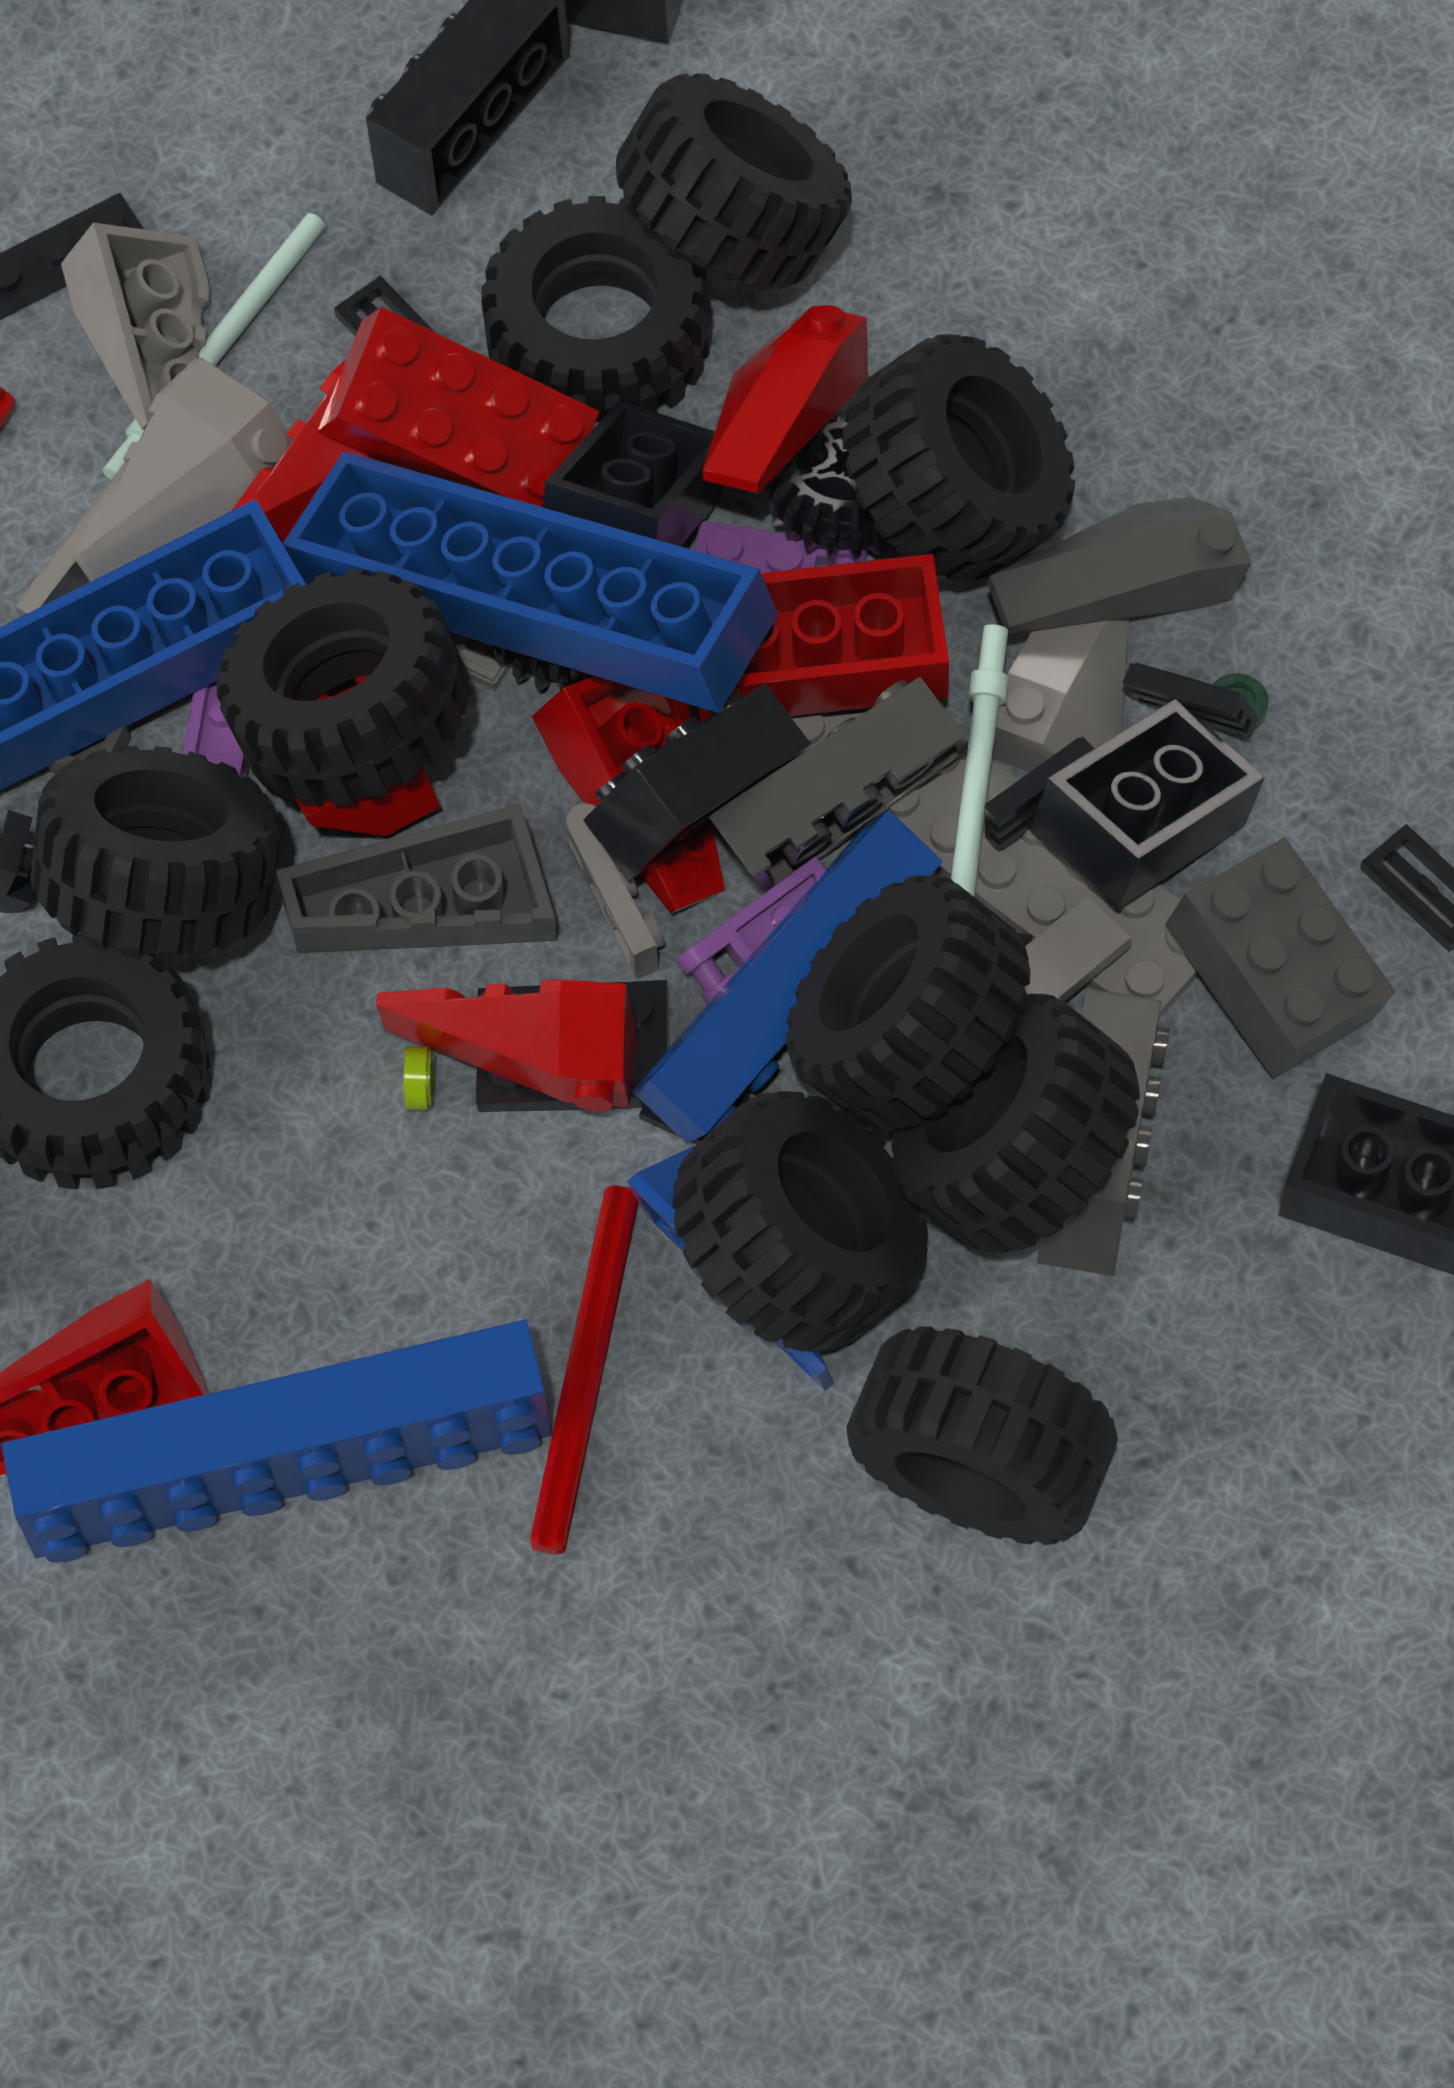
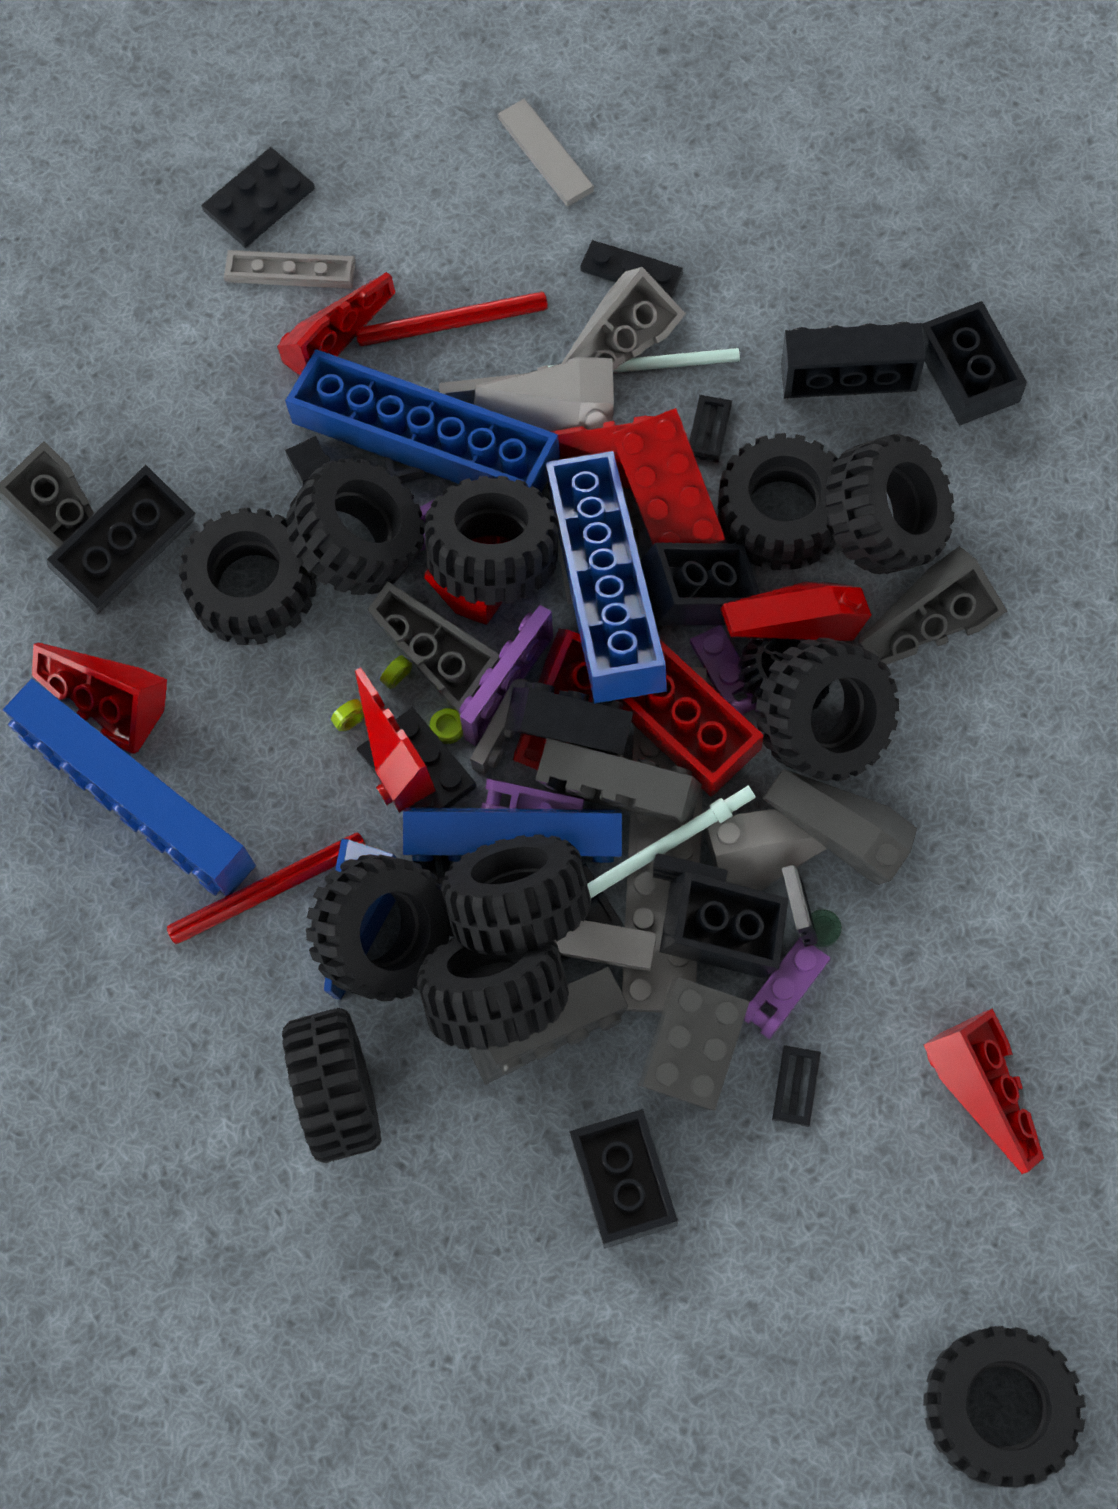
camera: 55 degrees right, 5 degrees up
(406, 966) = (396, 672): none -> lime tile
(542, 960) = (447, 725): none -> lime tile
(559, 852) = (515, 662): none -> medium lavender plate
(906, 236) = (941, 602): none -> dark grey wedge
(1286, 799) = (786, 986): none -> medium lavender plate

